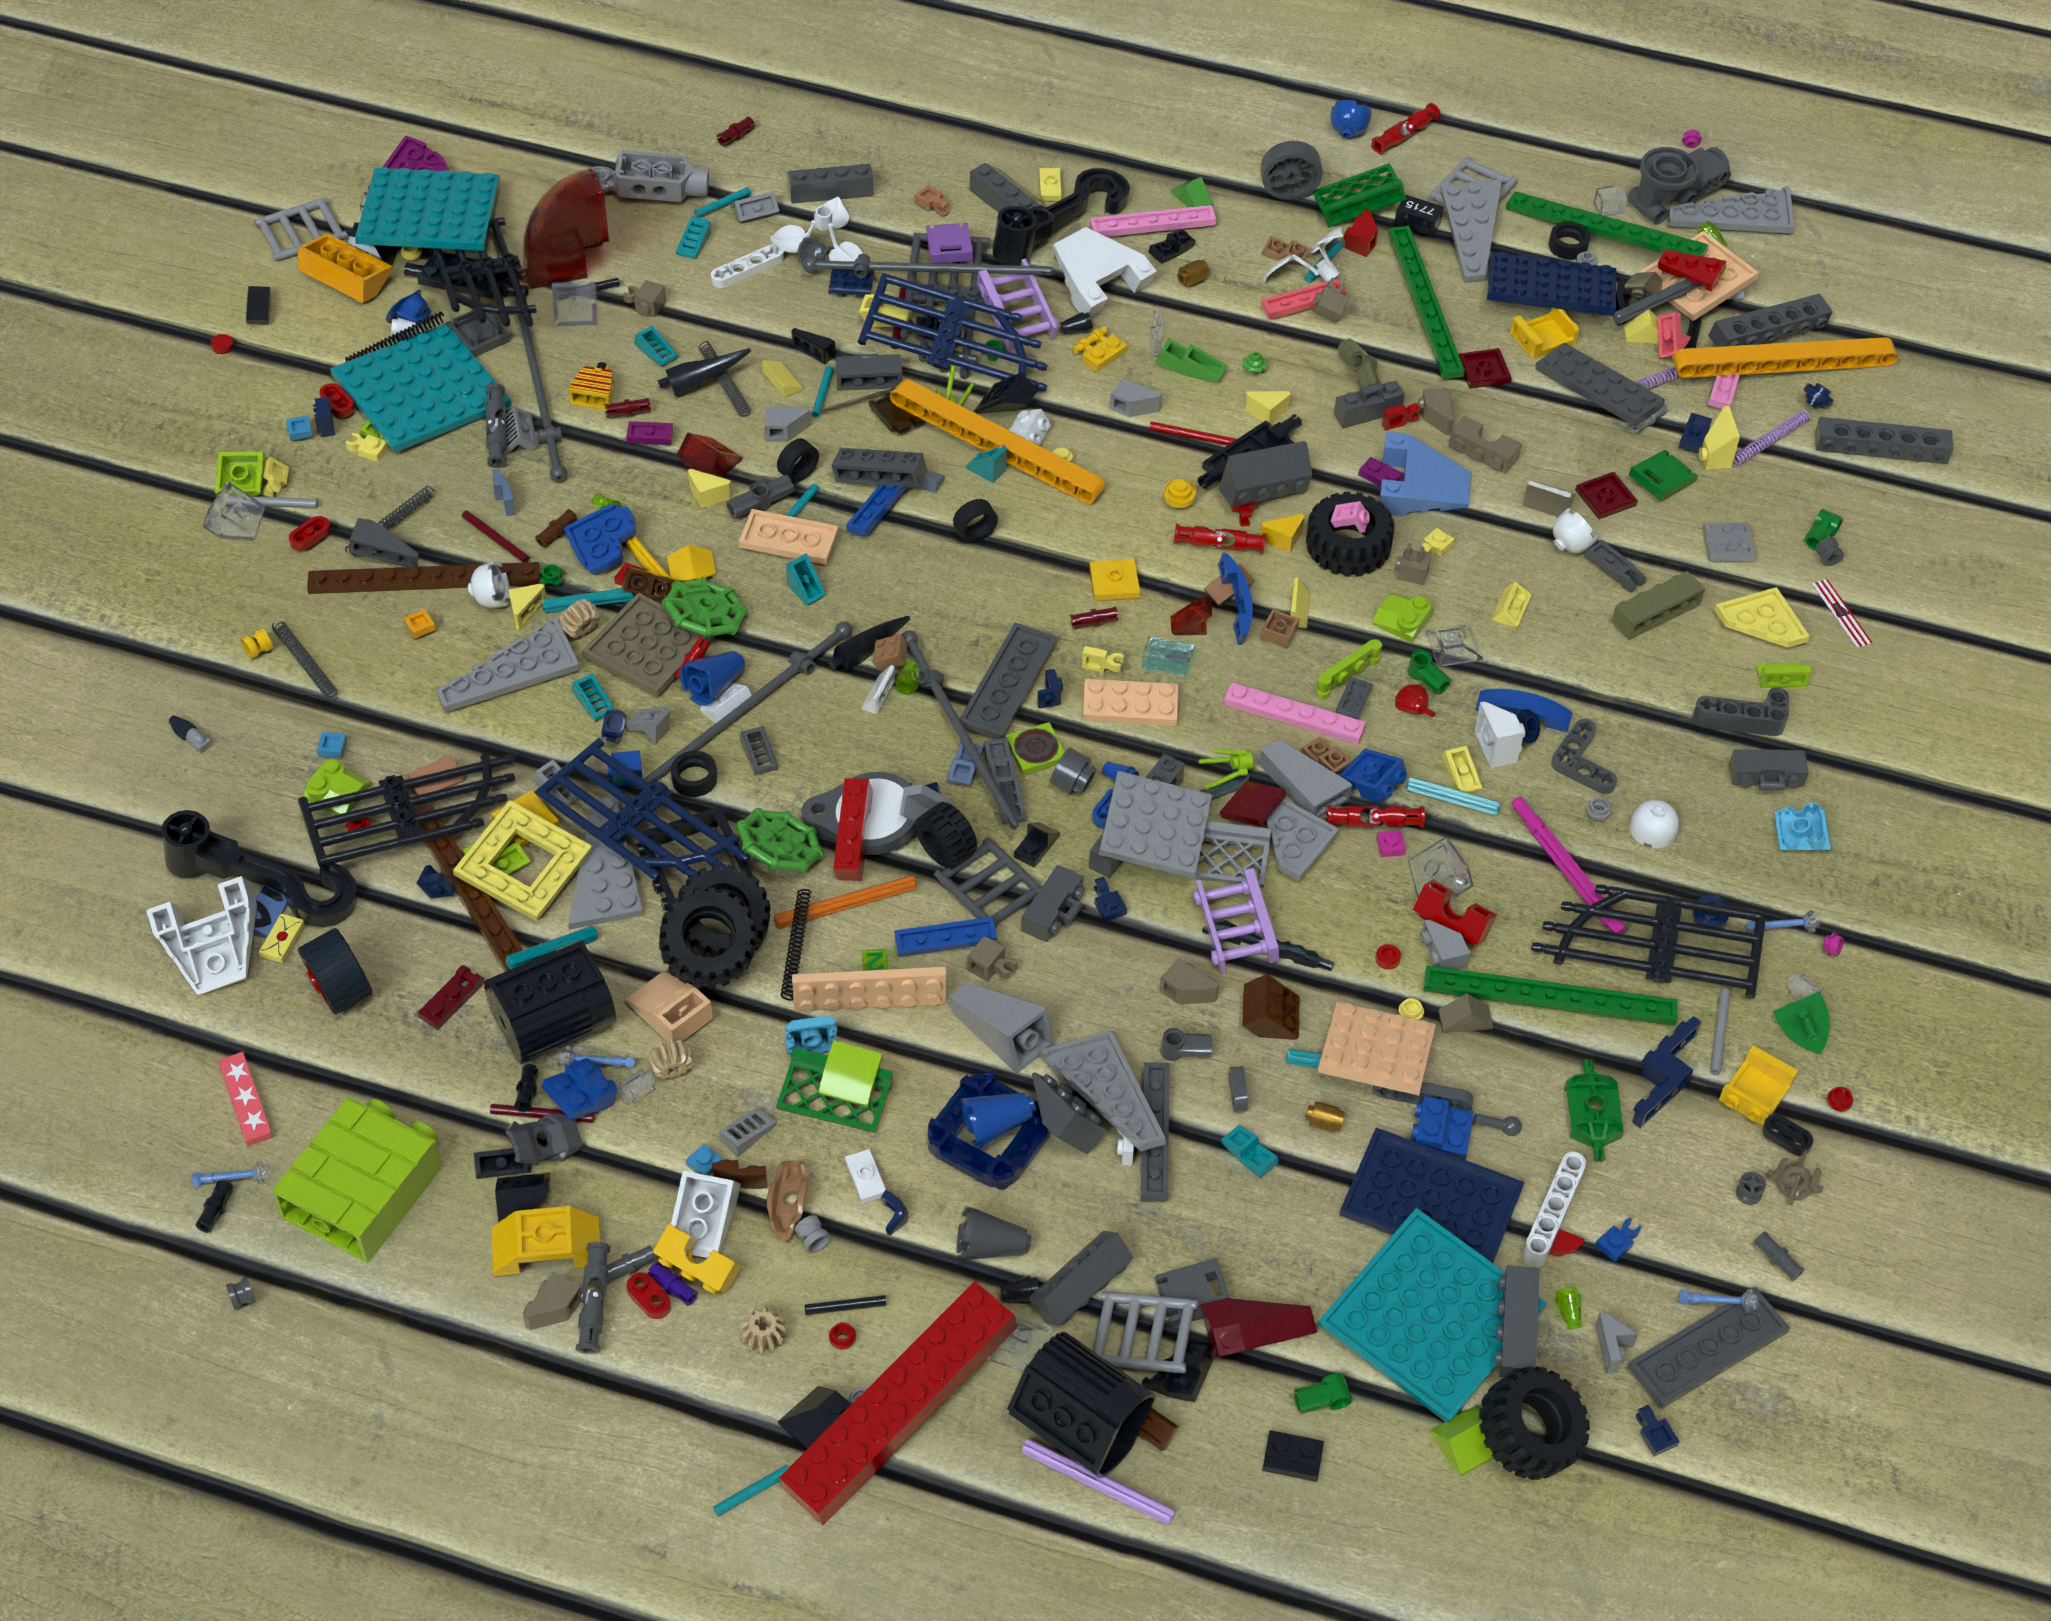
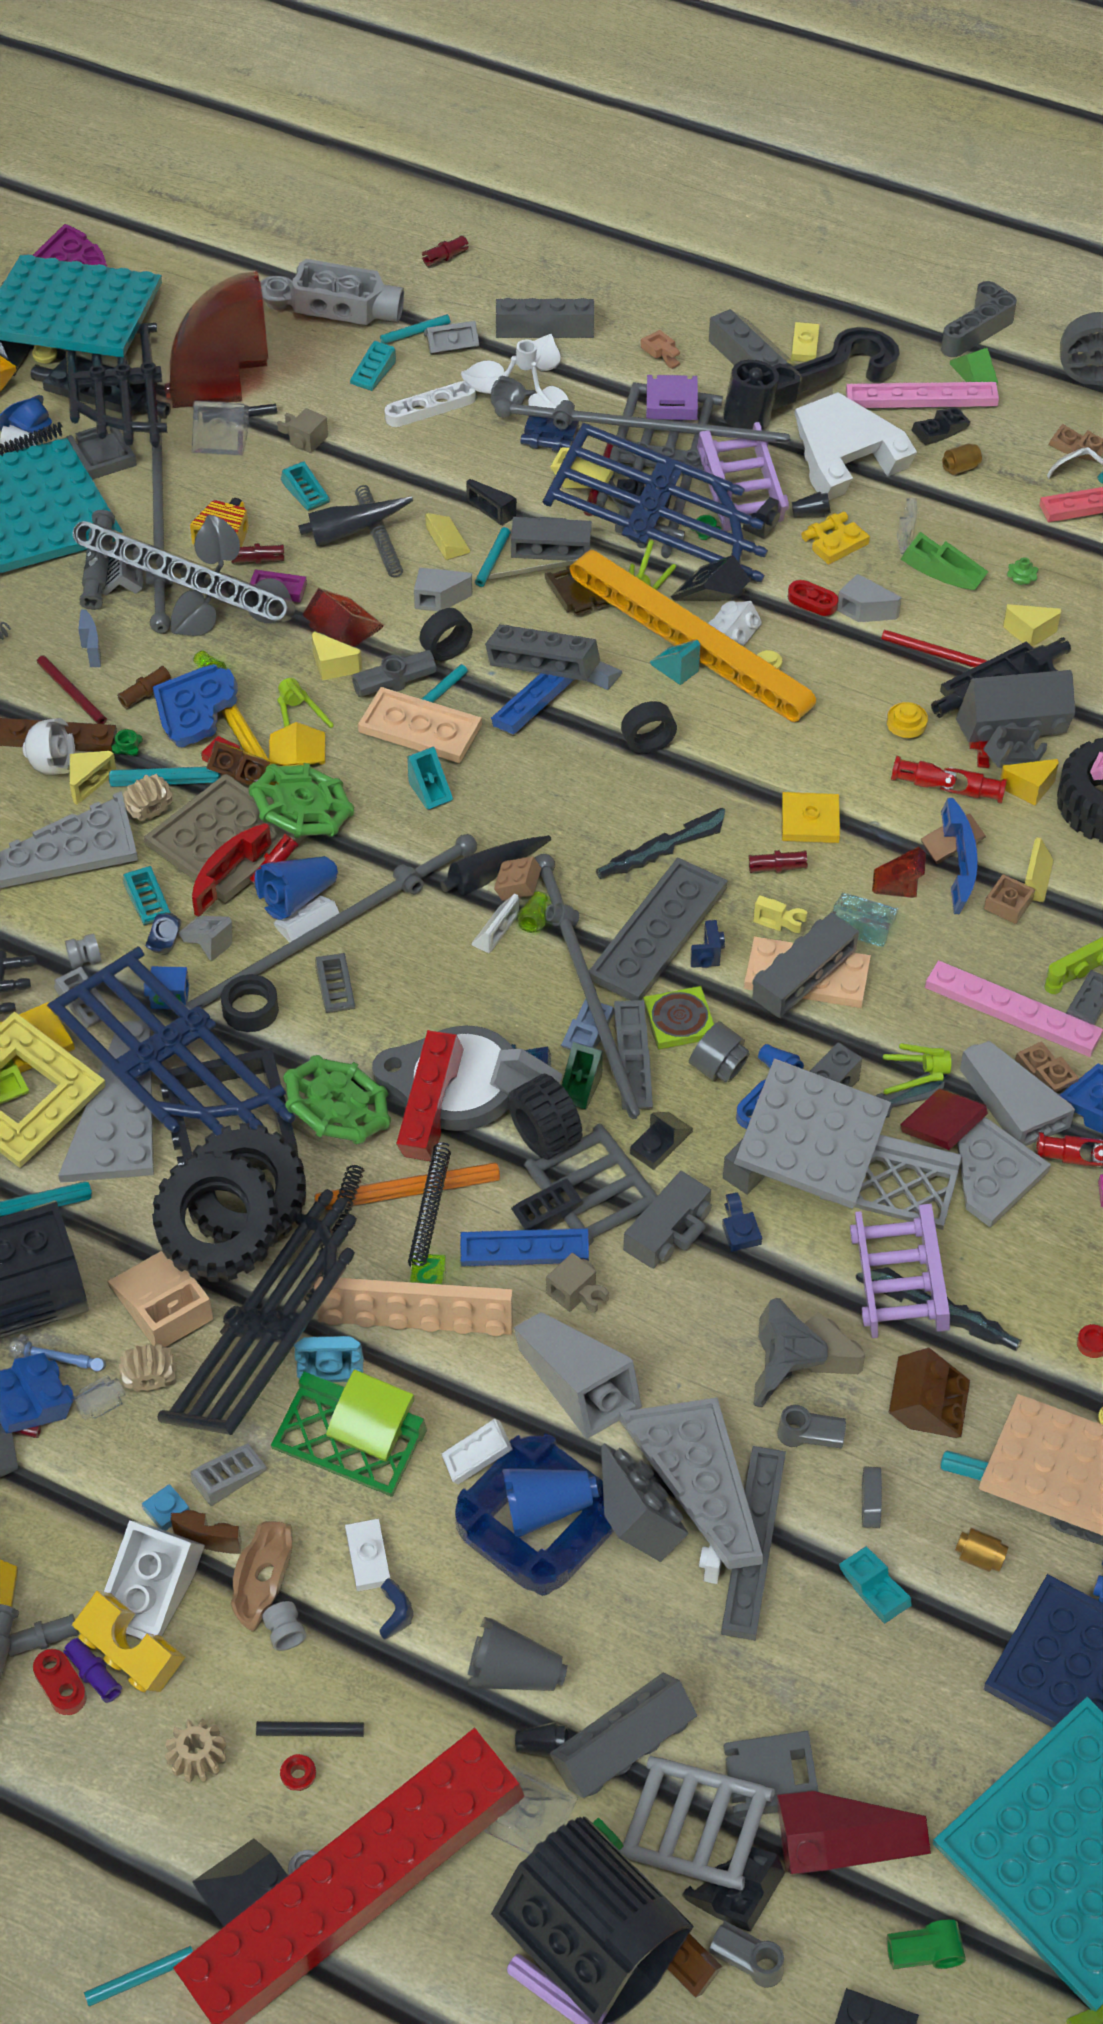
camera: 10 degrees right, 0 degrees up
(551, 747) = (83, 951): none -> light grey wheel
(562, 429) = (171, 570): none -> beam
(597, 405) = (213, 544): none -> dark grey plant
(668, 648) = (247, 844): none -> red slope
(680, 522) = (293, 695): none -> lime plant
(760, 1014) = (267, 1323): none -> black piece
(864, 910) = (423, 1203): none -> black piece
(935, 1091) = (476, 1451): none -> white plate
(963, 910) = (534, 1202): none -> black slope
(969, 797) = (583, 1073): none -> dark green slope
(1001, 613) = (663, 844): none -> black sword
(1044, 335) = (768, 514): none -> black bracket
(1089, 400) = (812, 597): none -> red plate
(1129, 696) = (804, 964): none -> dark grey brick
(1159, 986) = (788, 1348): none -> dark grey piece
(1194, 1416) = (746, 1951): none -> dark grey piece
(1200, 146) = (991, 314): none -> dark grey beam
(1268, 506) = (1014, 745): none -> dark grey hinge

